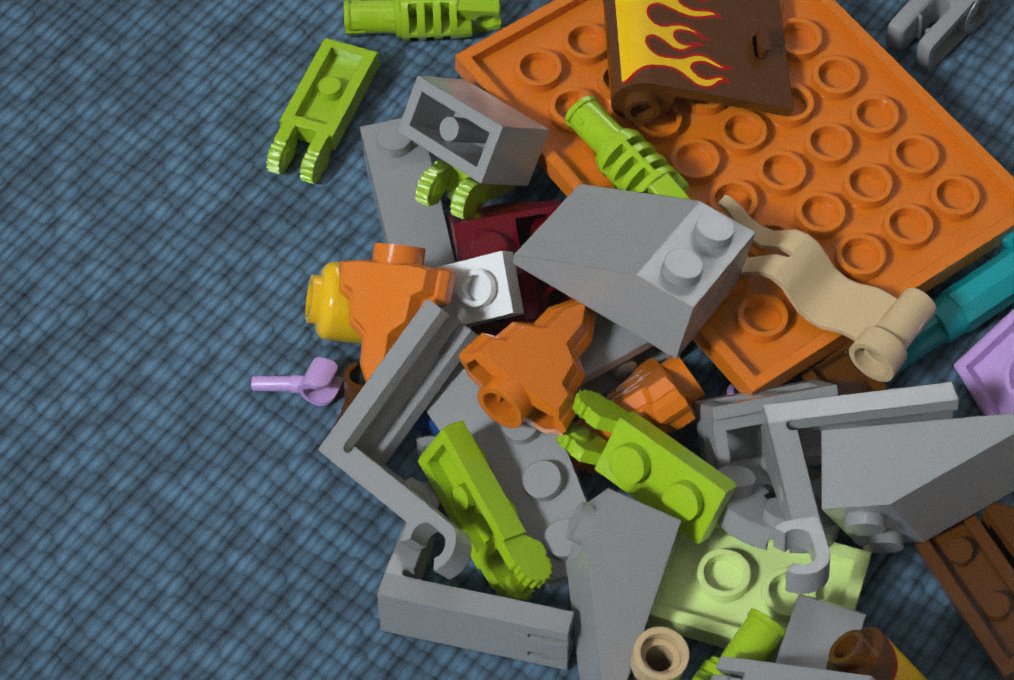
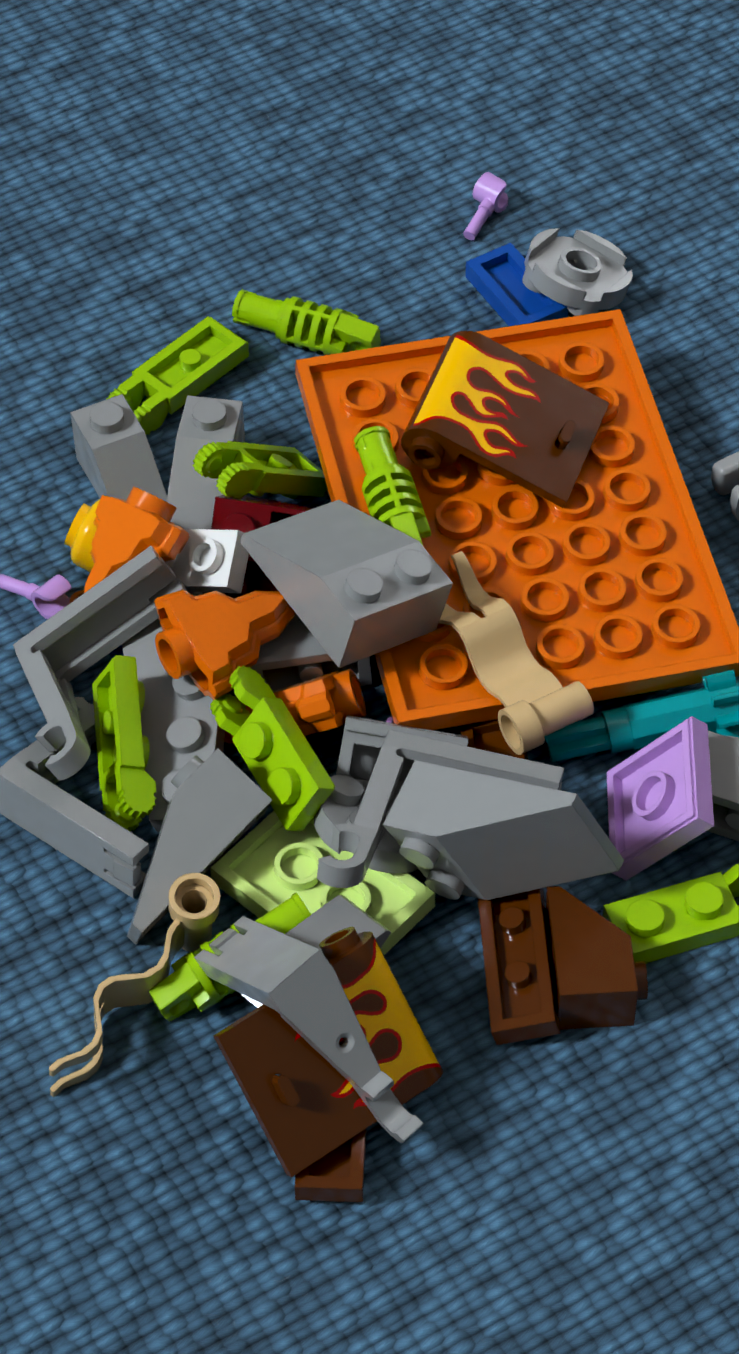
camera: 20 degrees right, 5 degrees down
(312, 212) = (115, 450): none -> light grey slope
(473, 131) = (271, 426): light grey brick -> none

